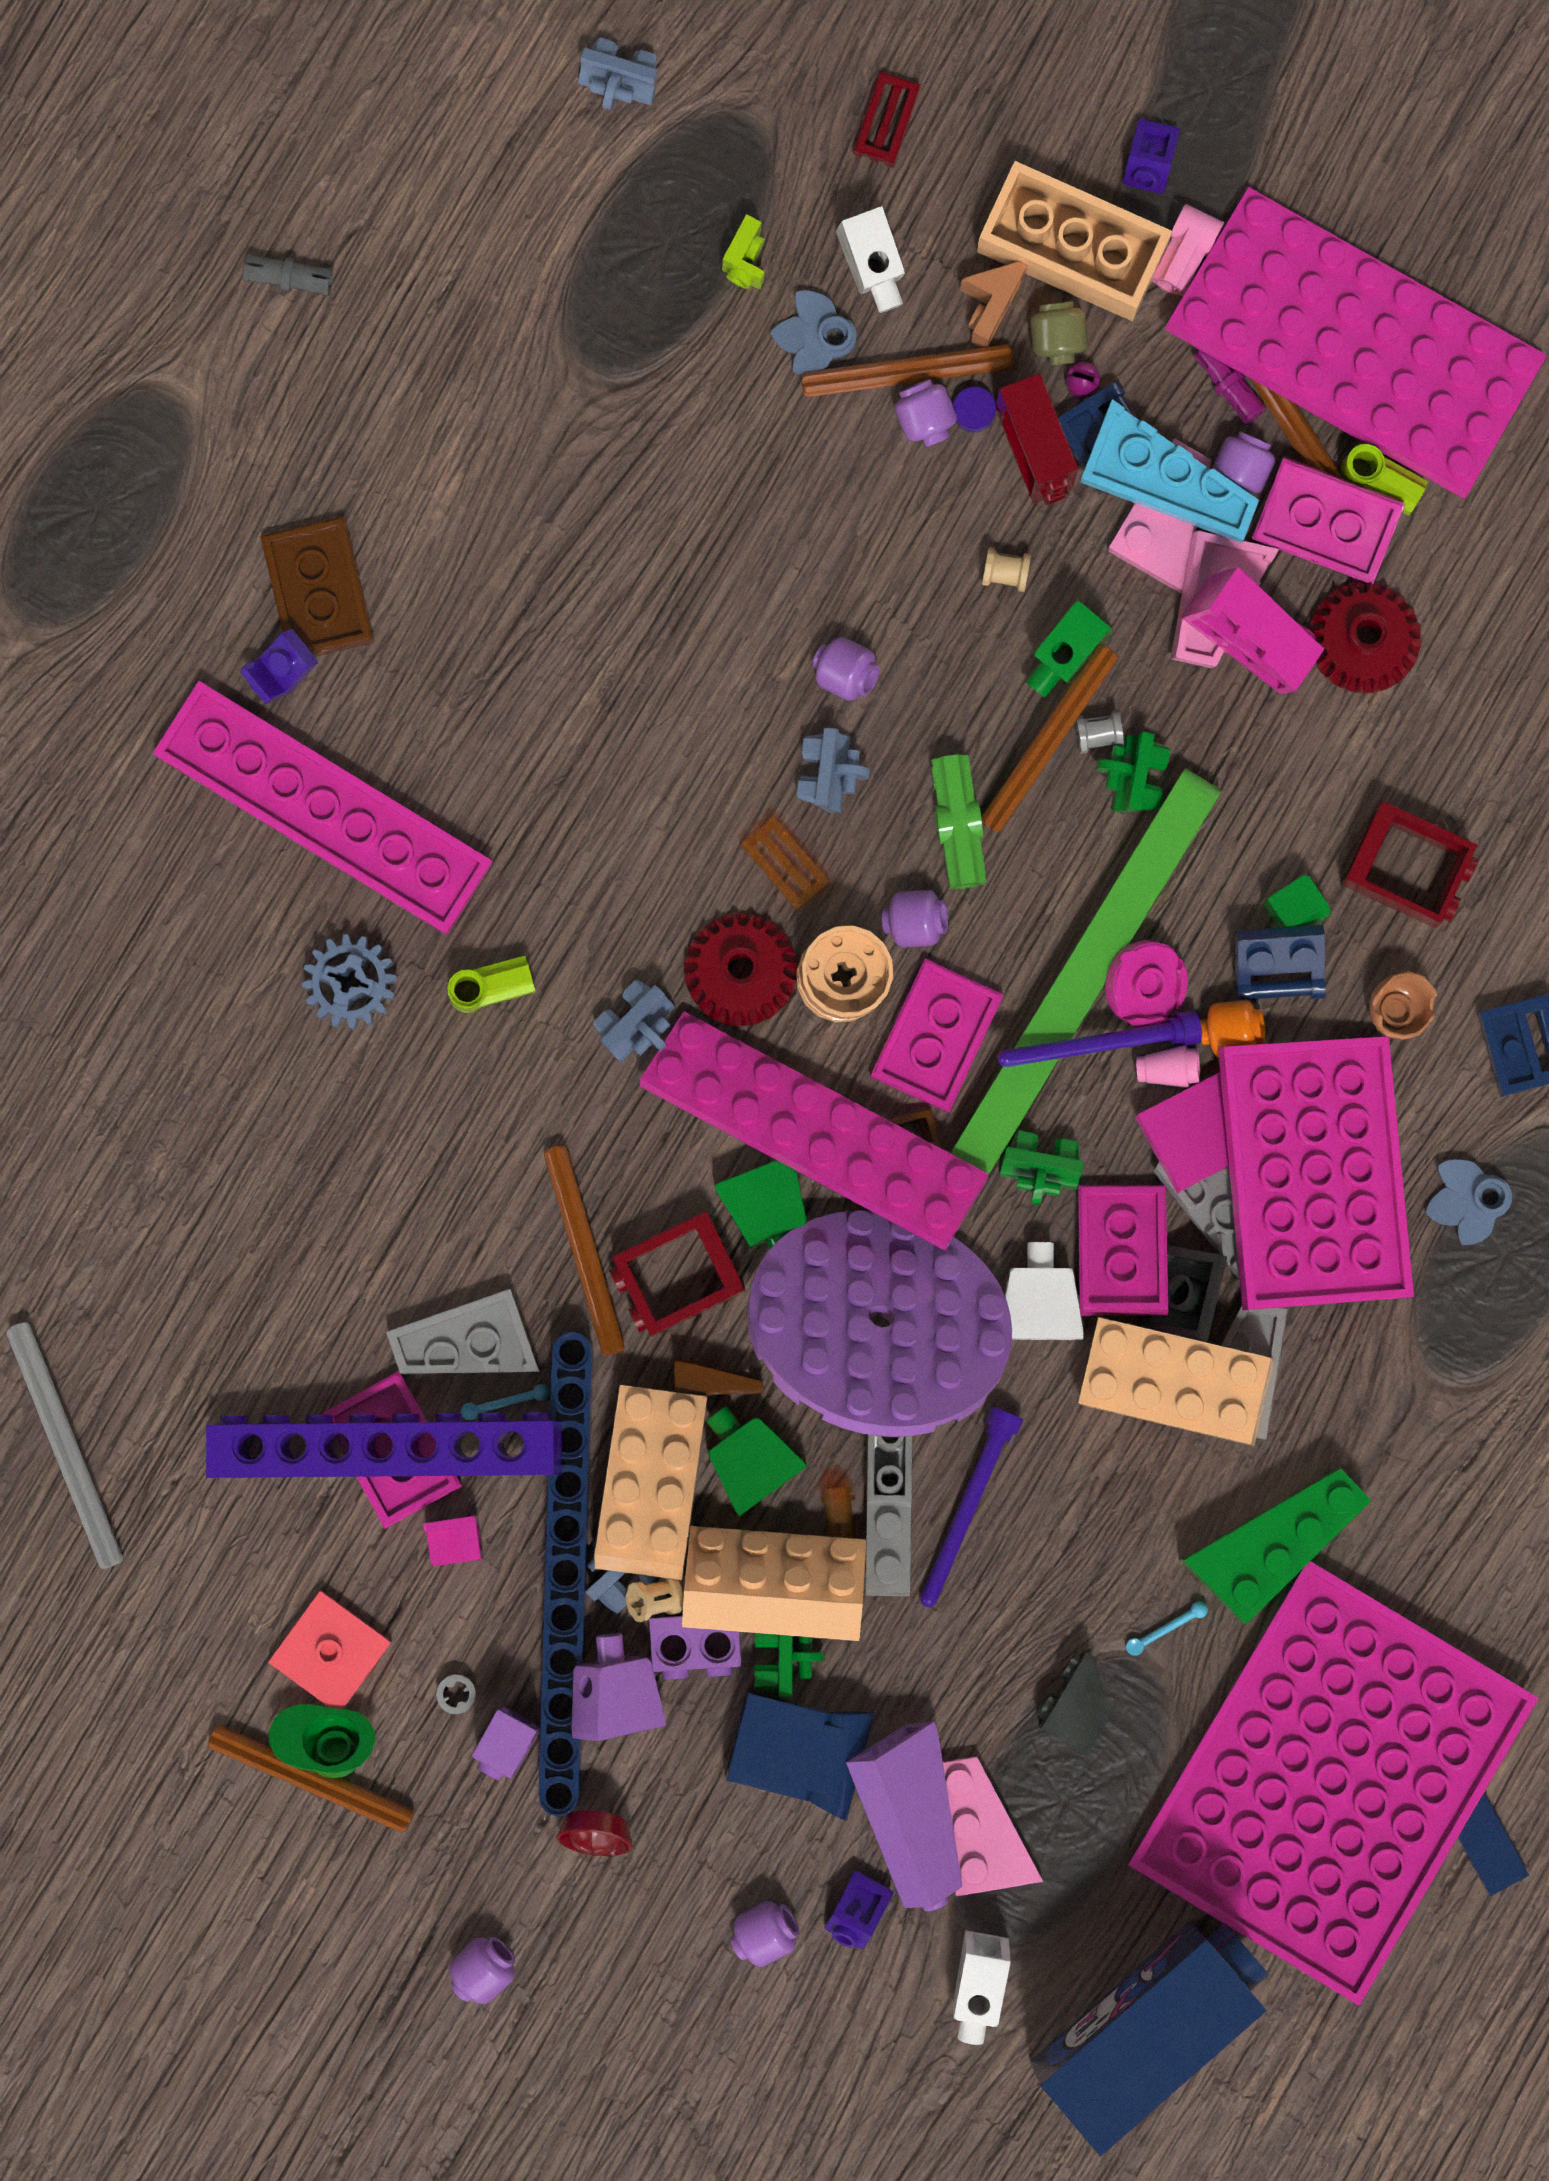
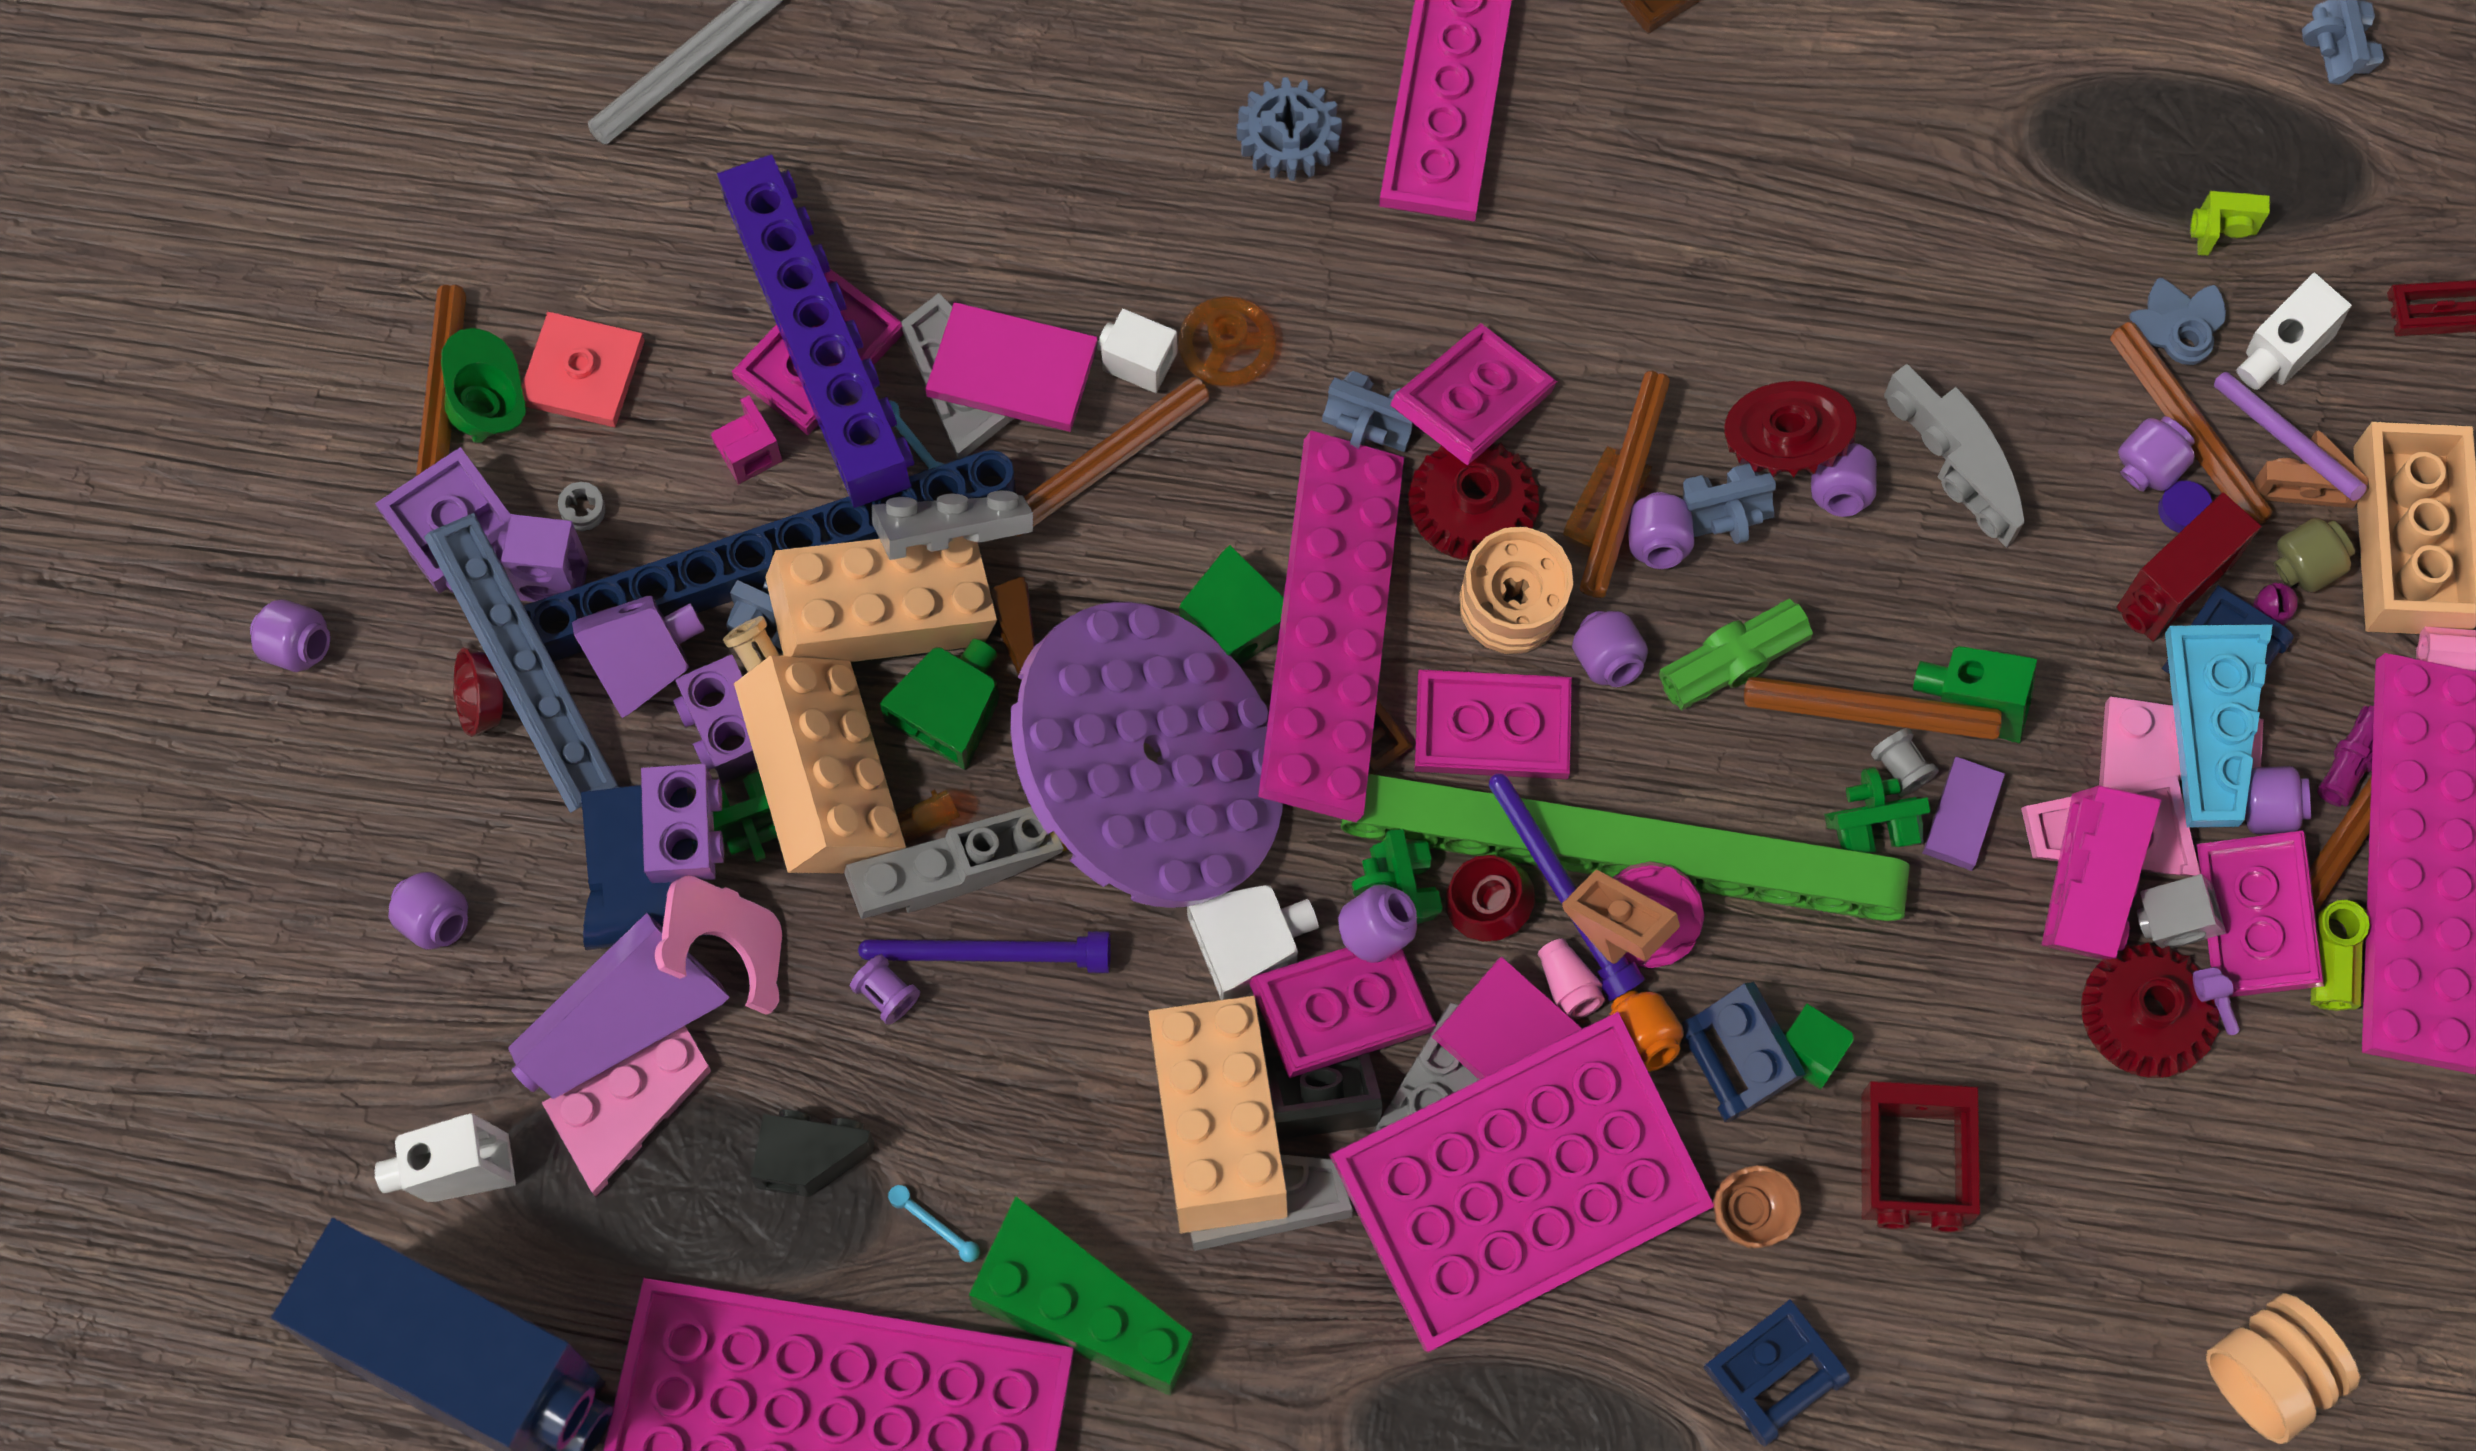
camera: 65 degrees right, 15 degrees down
(436, 1806) = (437, 498): none -> medium lavender plate
(482, 1298) = (1012, 366): none -> dark pink tile
(496, 984) = (1347, 261): lime piece -> none
(506, 1190) = (1137, 350): none -> white brick
(530, 1080) = (1224, 317): none -> clear orange piece
(592, 1790) = (520, 659): none -> sand blue tile
(610, 1409) = (934, 523): none -> light grey wing
(625, 1280) = (1155, 585): dark red window -> none
(656, 932) = (1473, 393): none -> dark pink tile
(769, 687) = (1790, 427): none -> dark red gear
(783, 845) = (1624, 484): none -> dark orange axle
(787, 1722) = (668, 825): none -> medium lavender brick
(832, 834) = (1660, 530): none -> medium lavender head
(858, 1911) = (488, 1002): dark purple bracket -> none
(878, 1687) = (703, 909): none -> bright pink piece
(879, 560) = (1974, 462): none -> light grey slope
(958, 303) = (2290, 436): none -> medium lavender bar
(970, 1598) = (884, 989): none -> medium lavender bush
(1006, 569) = (2031, 600): tan bush -> none
(1079, 1199) = (1378, 923): none -> medium lavender head
(1087, 1089) = (1500, 887): none -> dark red hat
(1152, 1013) = (1619, 918): none -> nougat slope
(1155, 704) = (1963, 813): none -> medium lavender tile
(1305, 580) = (2180, 912): none -> light grey brick
(1372, 585) = (2211, 985): none -> medium lavender hand
(1462, 1201) = (1563, 1370): sand blue plate -> none

